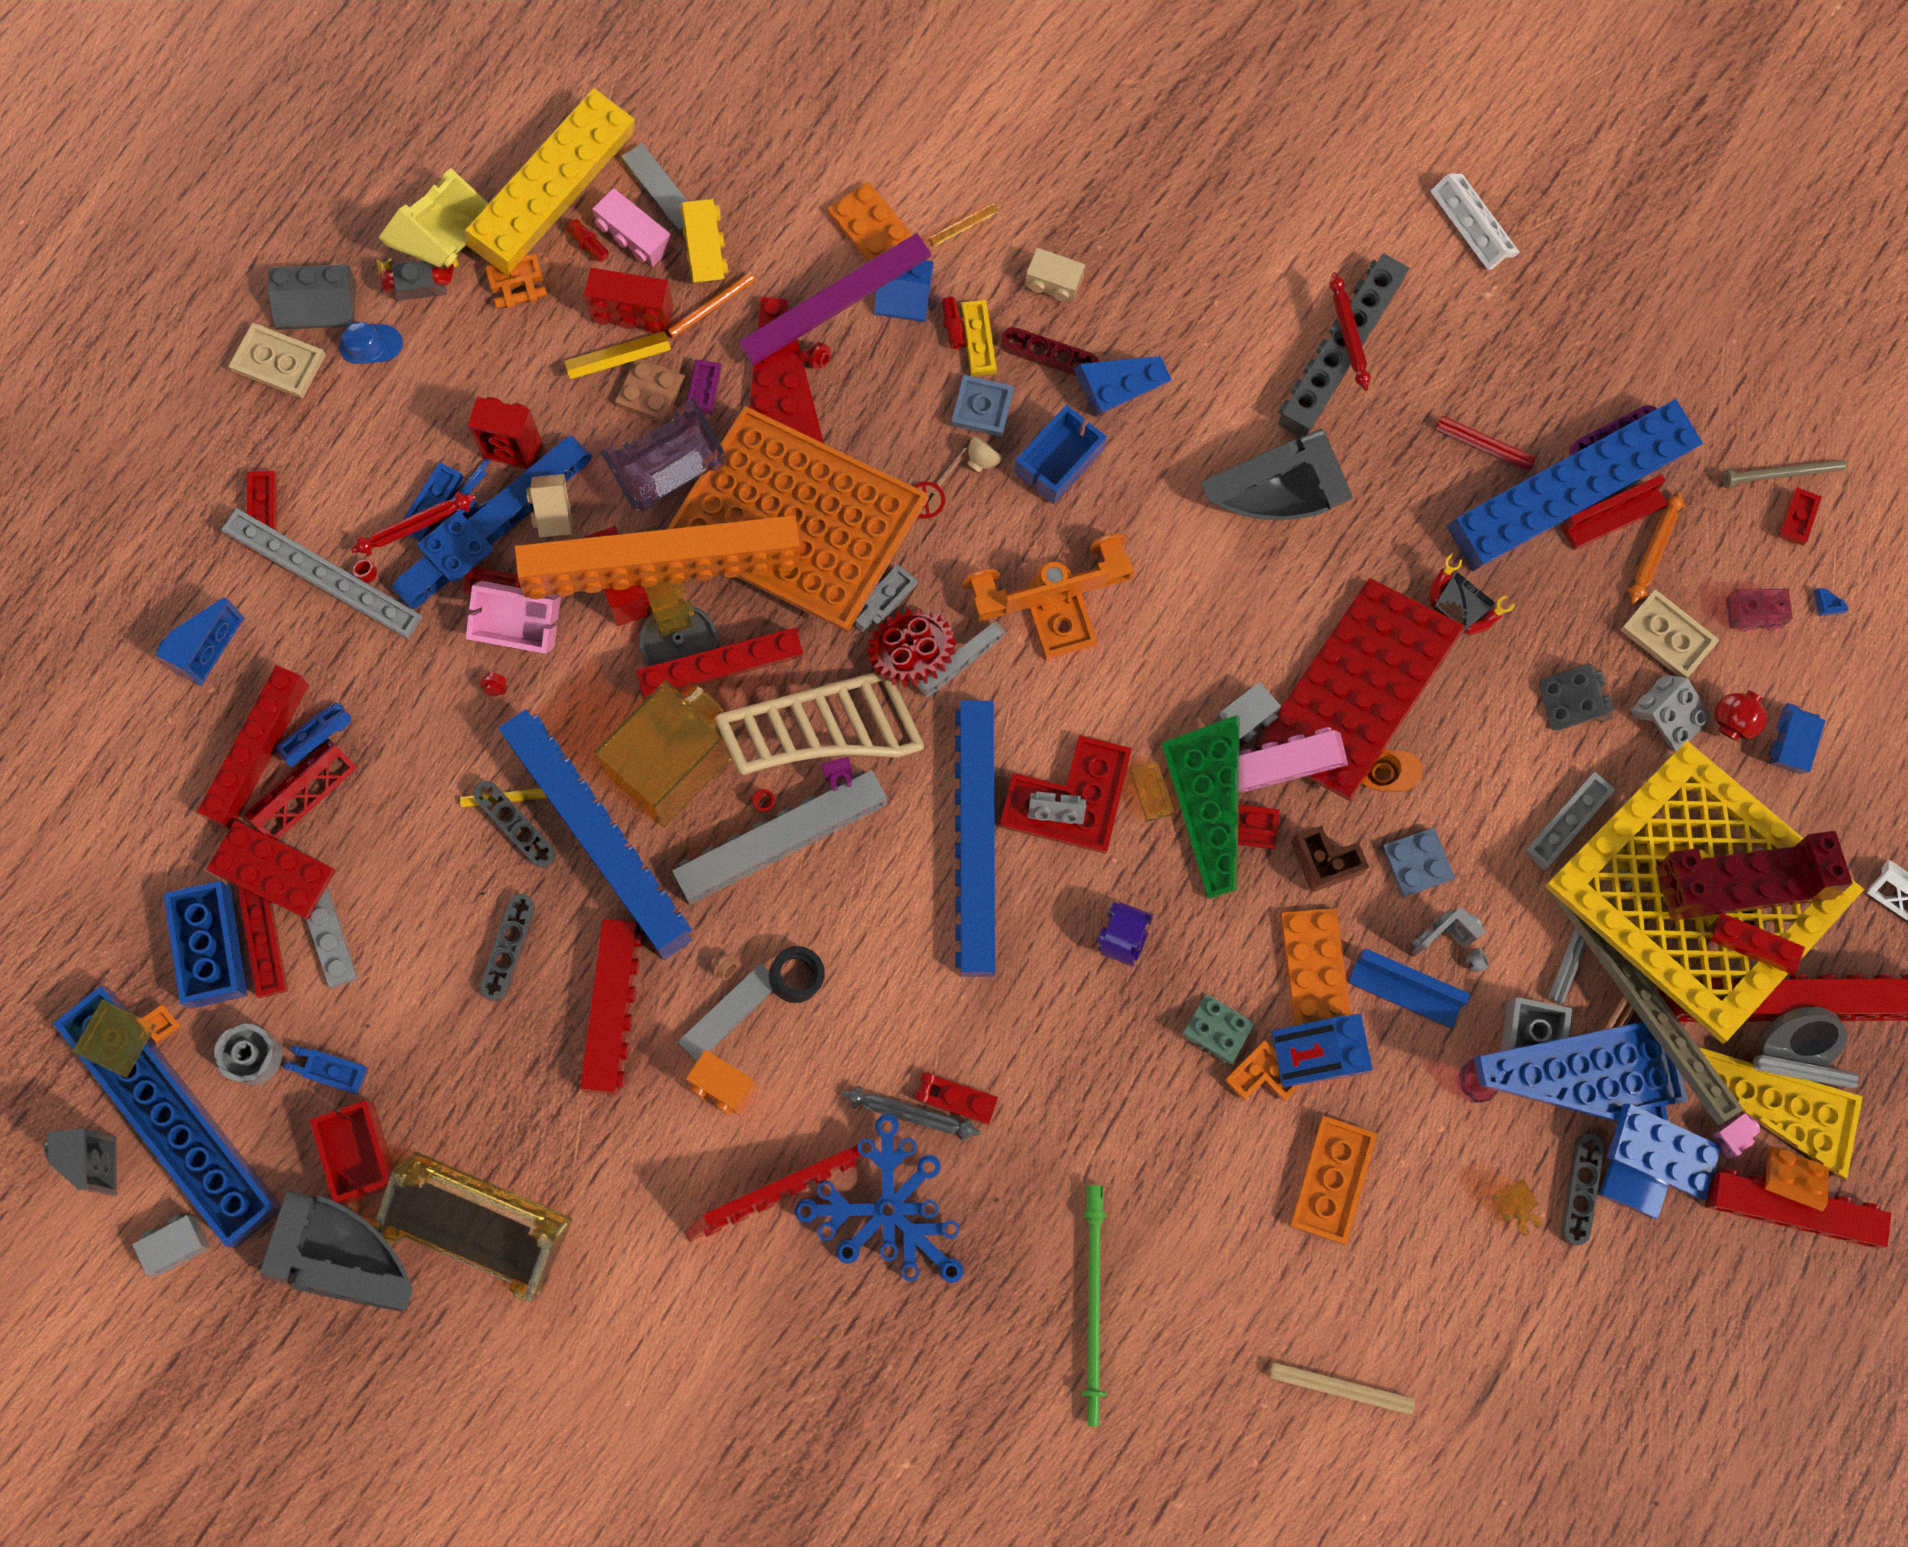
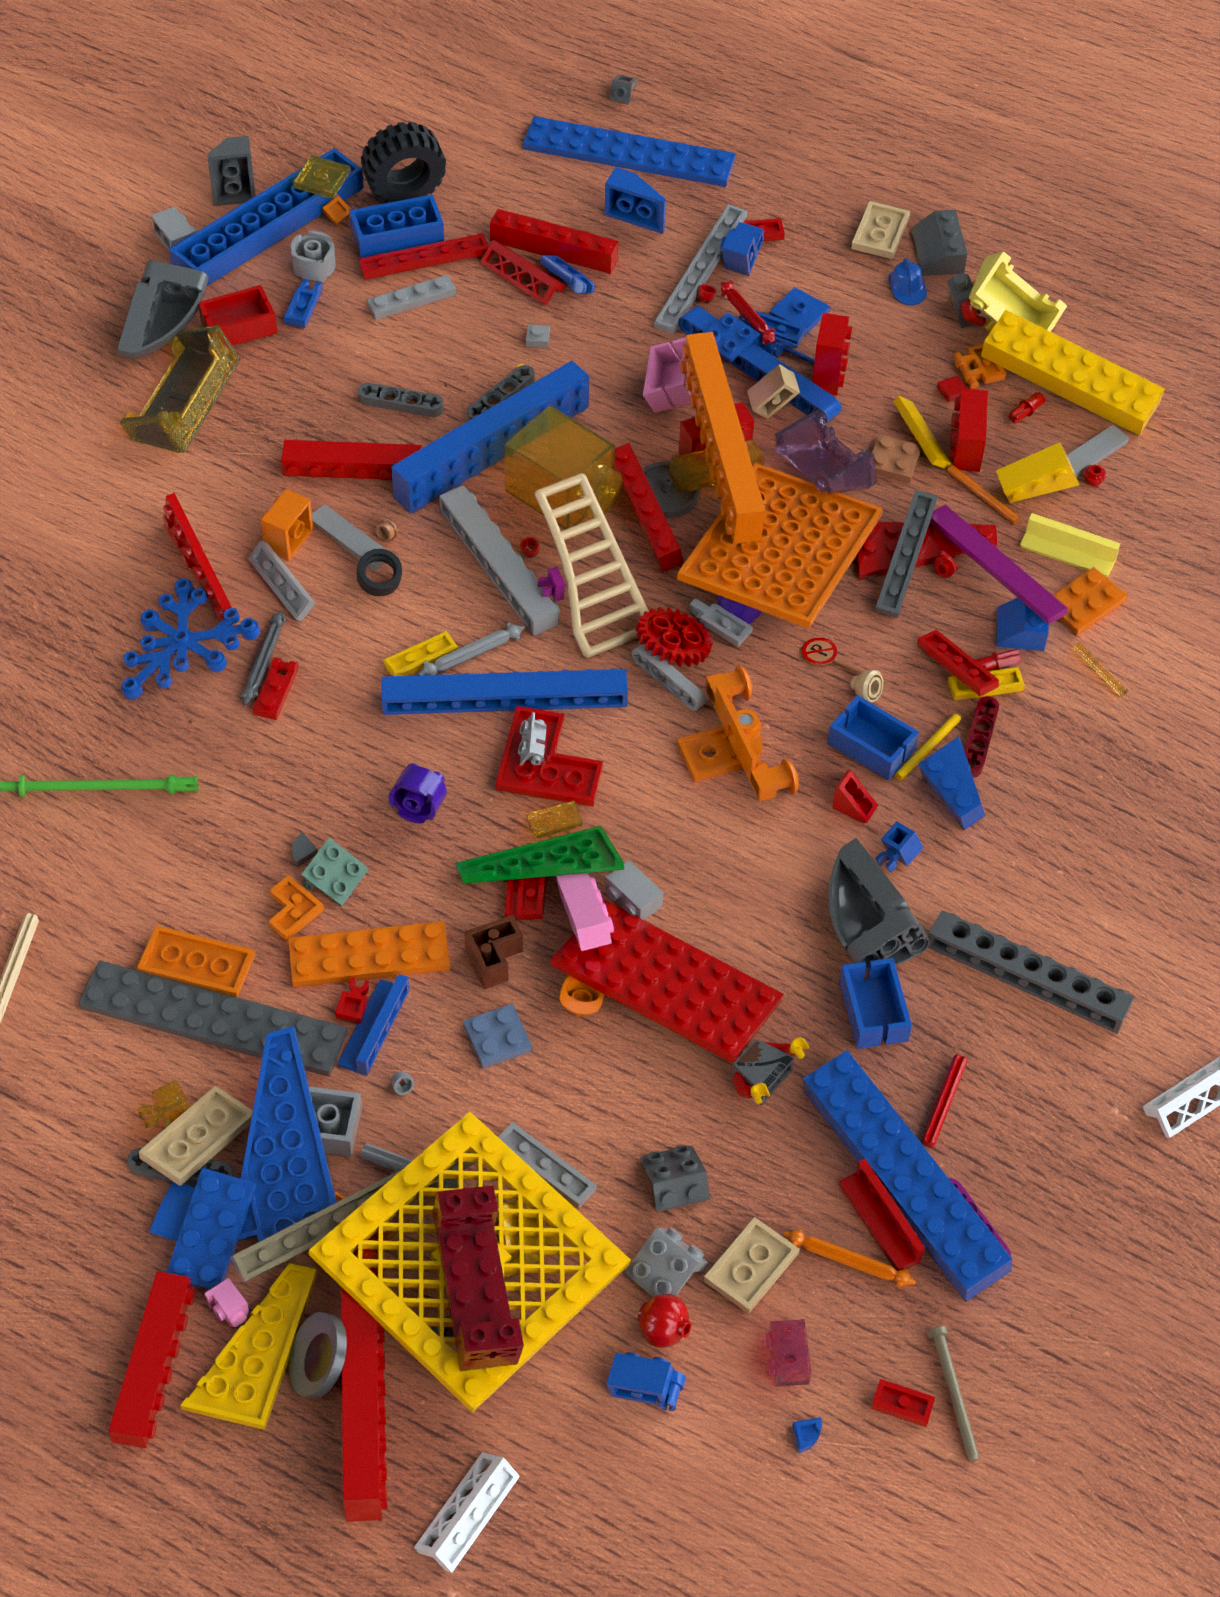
camera: 90 degrees right, 20 degrees down
(87, 649) = (629, 151): none -> blue plate
(108, 927) = (395, 145): none -> black tyre
(271, 870) = (455, 256): red plate -> none
(300, 518) = (742, 248): none -> blue brick
(402, 468) = (800, 309): none -> blue plate
(413, 777) = (538, 336): none -> light grey plate
(493, 684) = (617, 374): red plate -> none
(547, 315) = (950, 388): none -> red tile
(632, 228) = (1048, 429): bright pink brick -> none
(692, 192) = (1094, 475): none -> red plate
(705, 384) = (899, 490): magenta plate -> none
(795, 228) = (1069, 545): none -> light yellow panel
(798, 1092) = (281, 581): none -> light grey plate
(807, 390) = (906, 554): none -> dark grey plate
(911, 873) = (472, 650): none -> light grey wheel
(914, 931) = (412, 659): none -> yellow tile
(960, 358) = (958, 662): none -> red plate
(982, 406) = (916, 685): sand blue plate -> none
(1044, 391) = (927, 747): none -> yellow bar
(1054, 275) = (1058, 735): tan brick -> none
(1126, 485) = (853, 798): none -> red slope
(1183, 1065) = (303, 849): none -> dark grey tile
(1198, 444) = (900, 845): none -> blue brick
(1322, 1050) = (311, 944): blue slope -> none
(1350, 331) = (1037, 961): red wheel -> none
(1386, 1009) = (353, 1004): none -> red plate
(1390, 489) = (876, 1004): none -> blue piece
(1399, 1162) = (207, 1015): none -> dark grey plate
(1459, 924) = (431, 1050): light grey bracket -> none
(1554, 1169) = (197, 1135): none -> tan plate
(1757, 943) = (408, 1285): red plate -> none
(1797, 1178) = (181, 1349): orange plate -> none
(1805, 1071) = (289, 1367): light grey axle -> none

